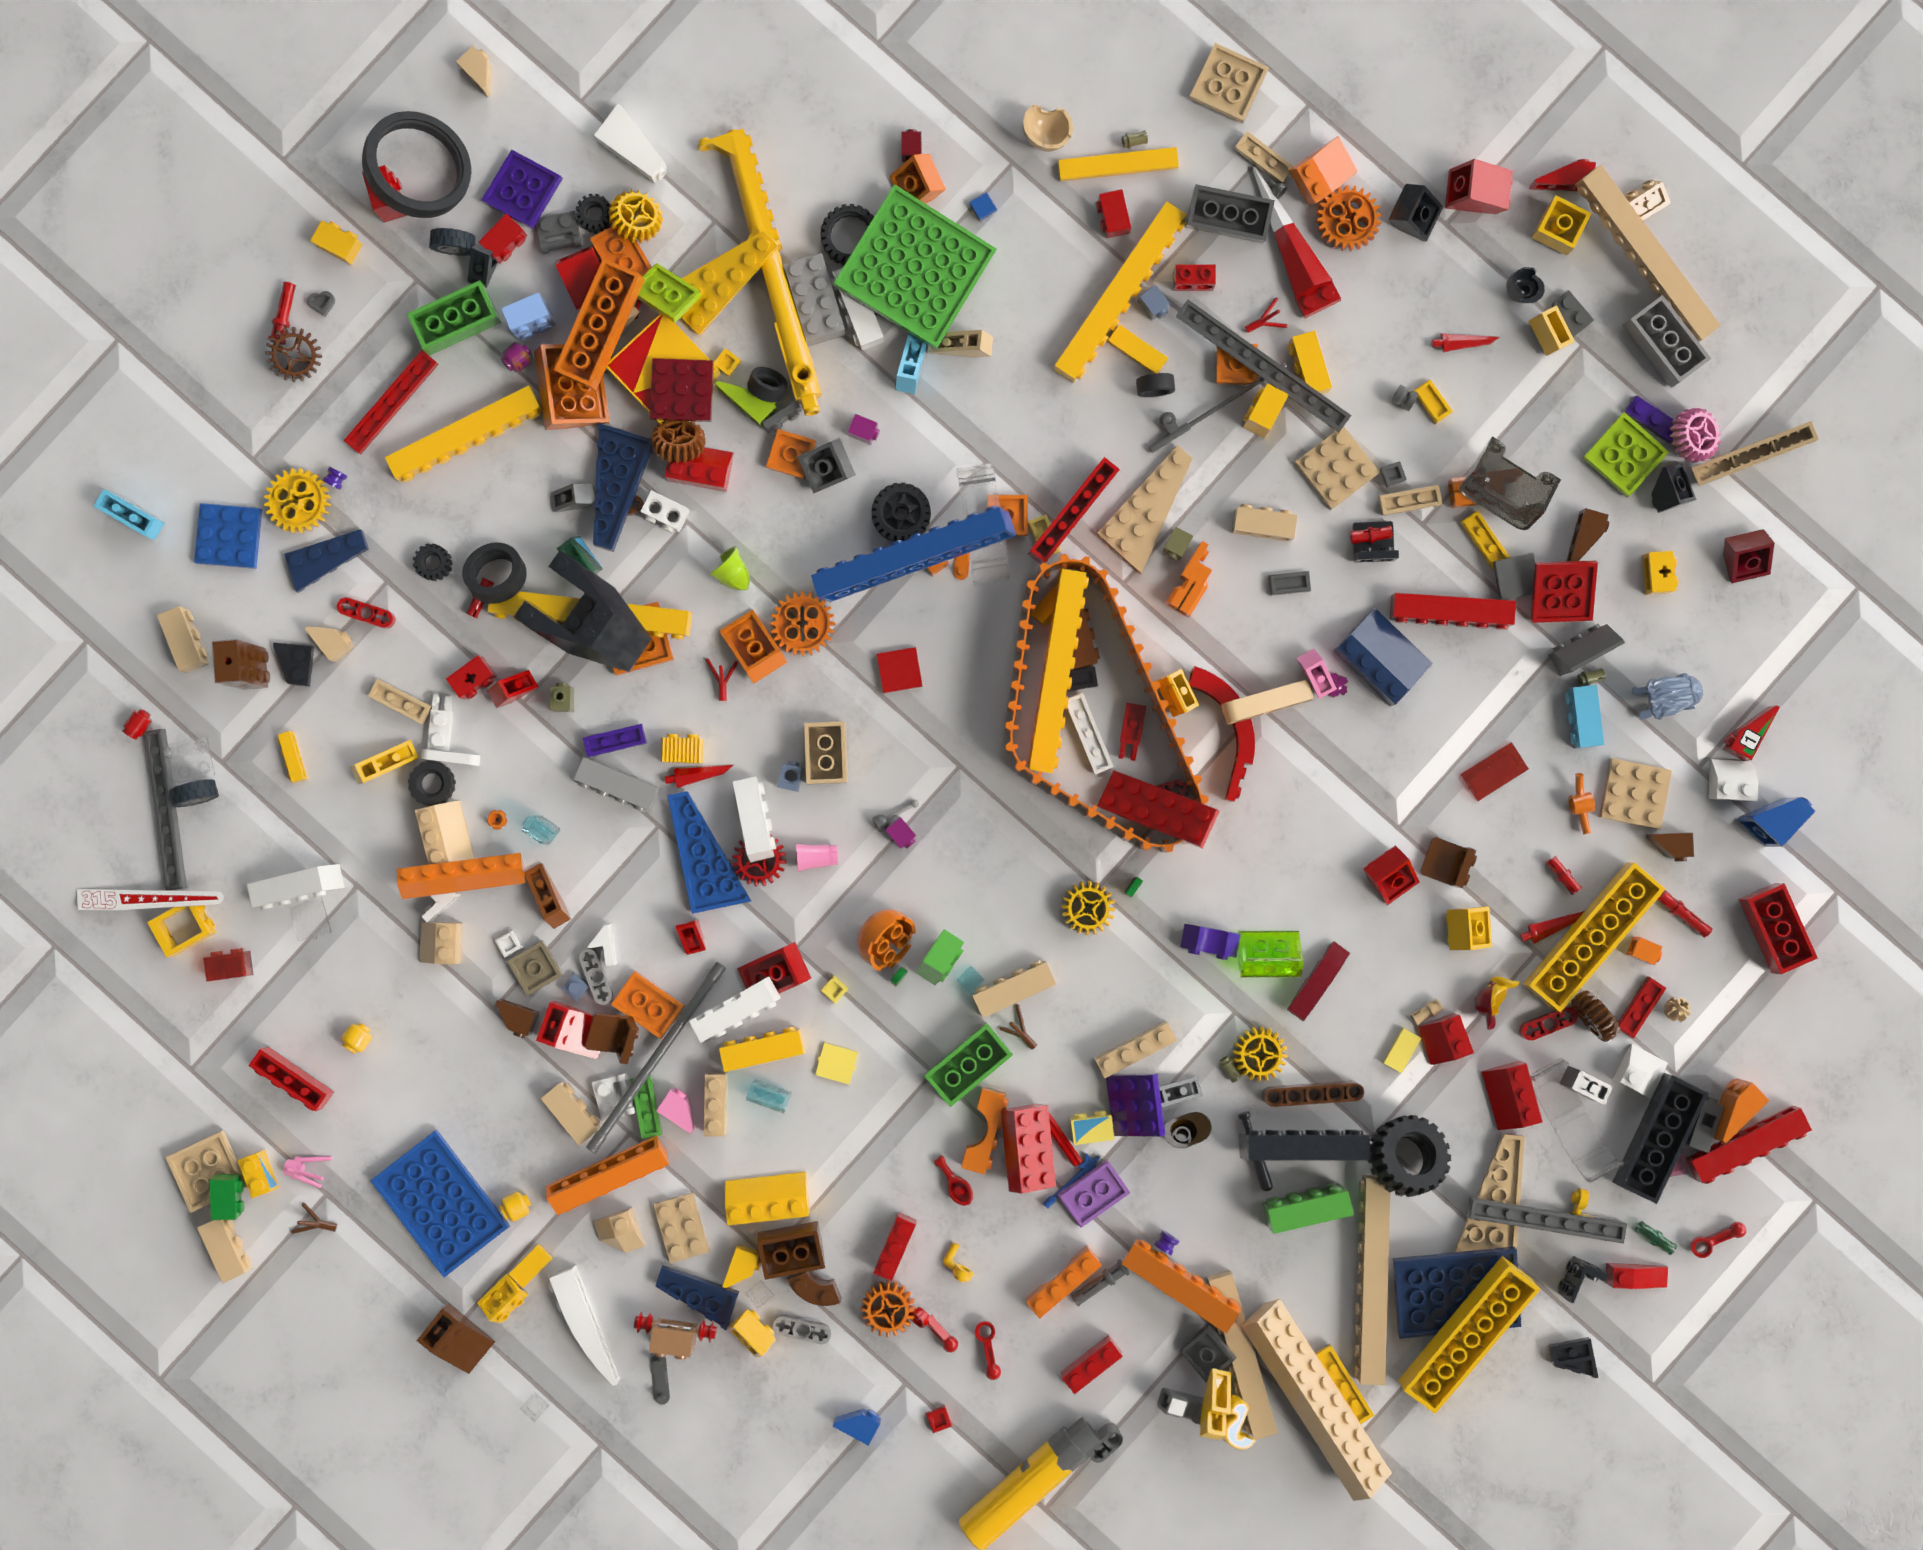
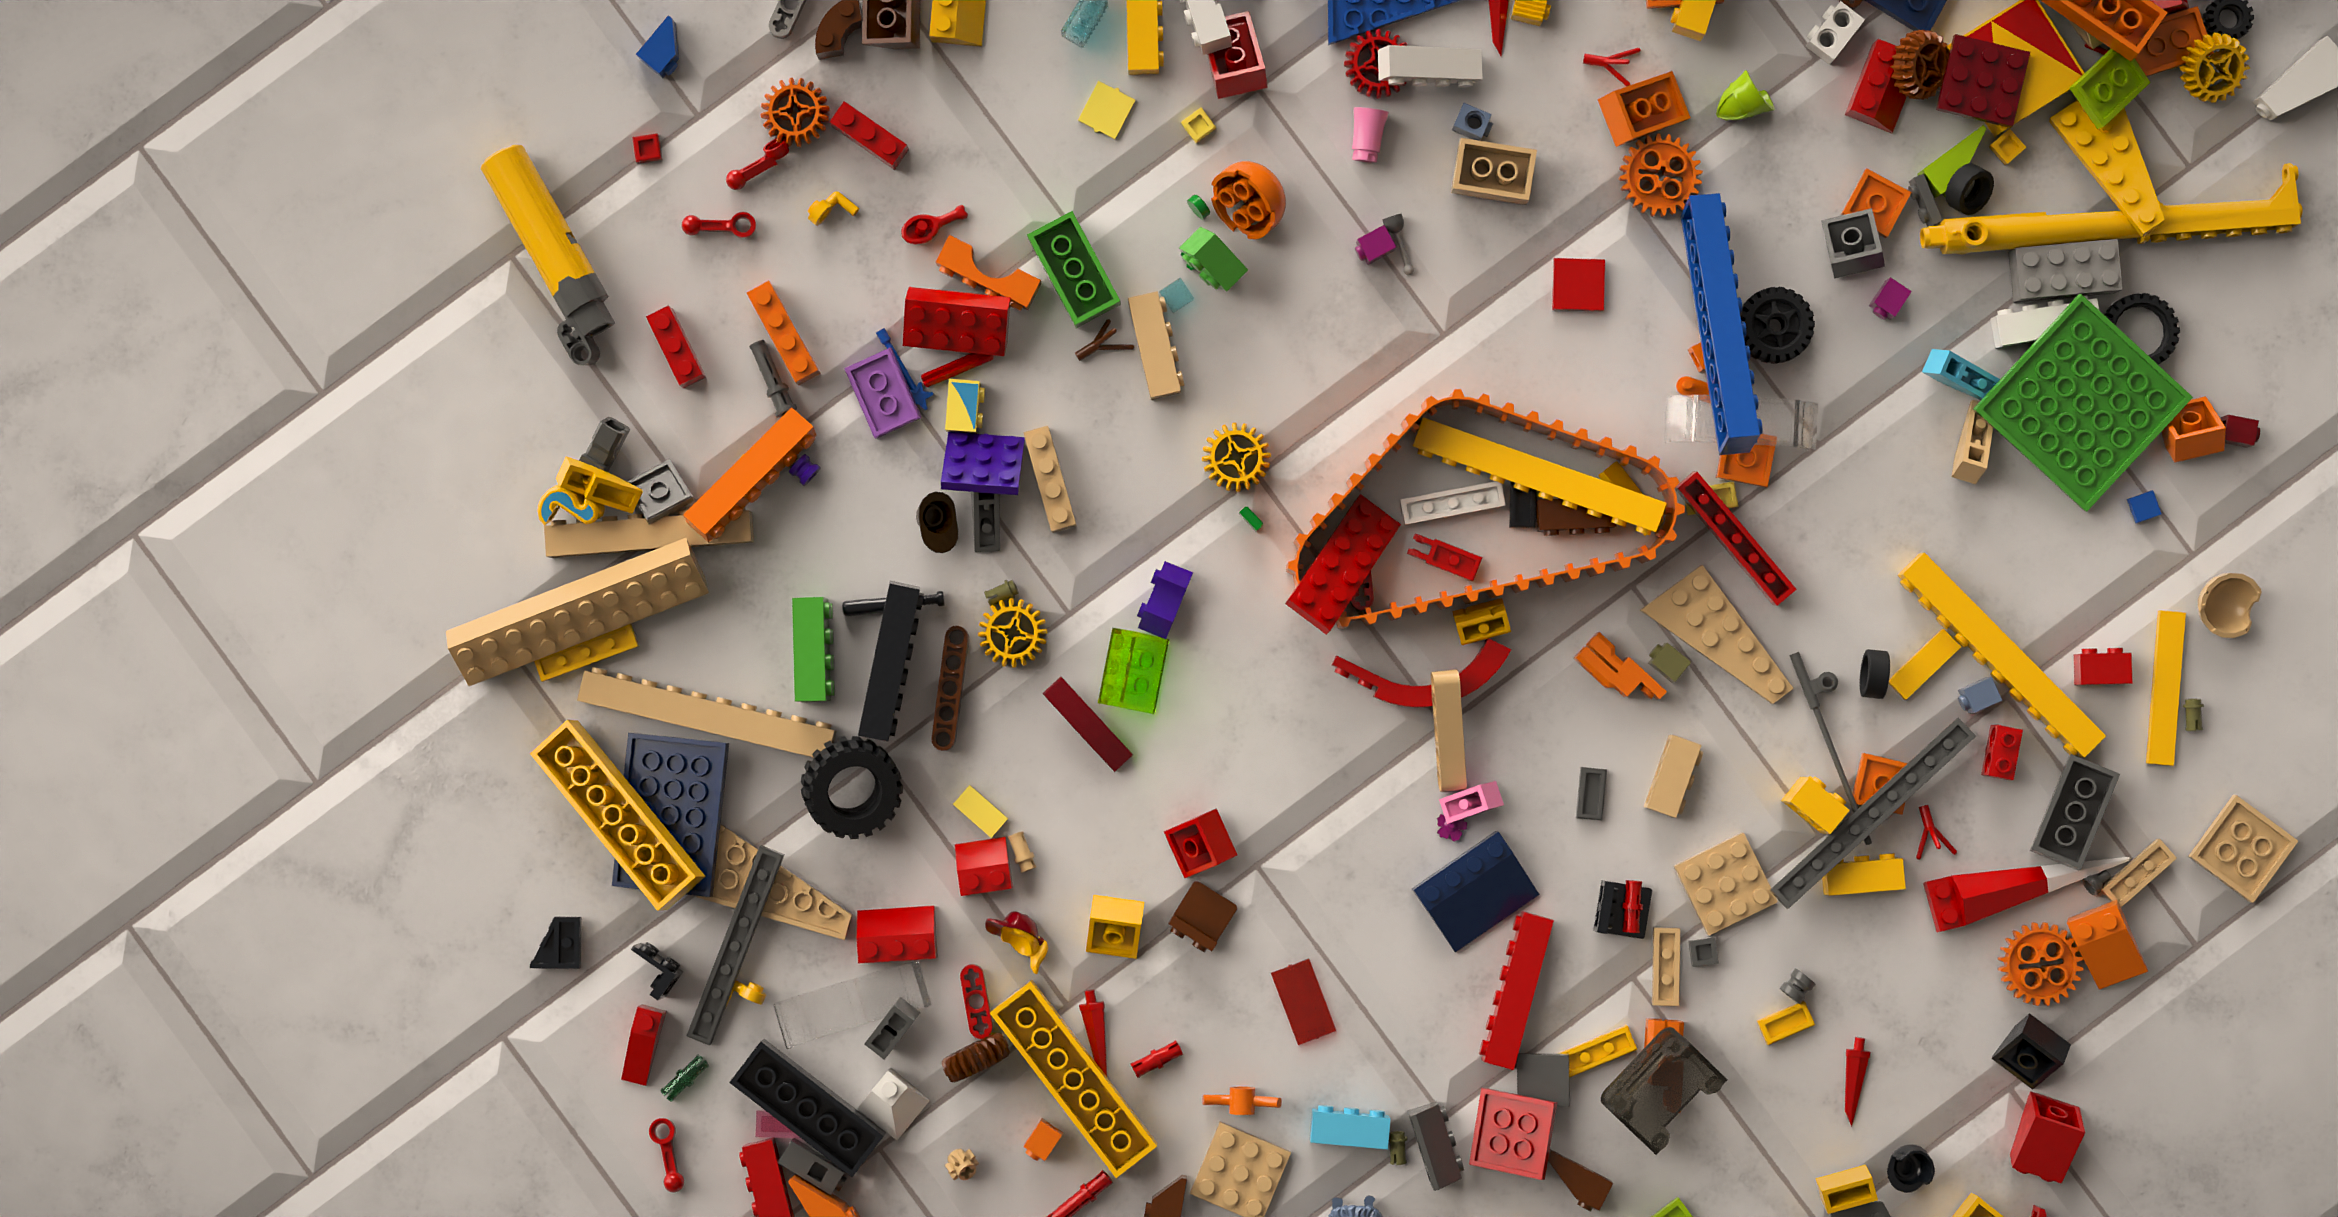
camera: 100 degrees right, 0 degrees up
(1641, 1007) = (972, 1121): red tile -> none

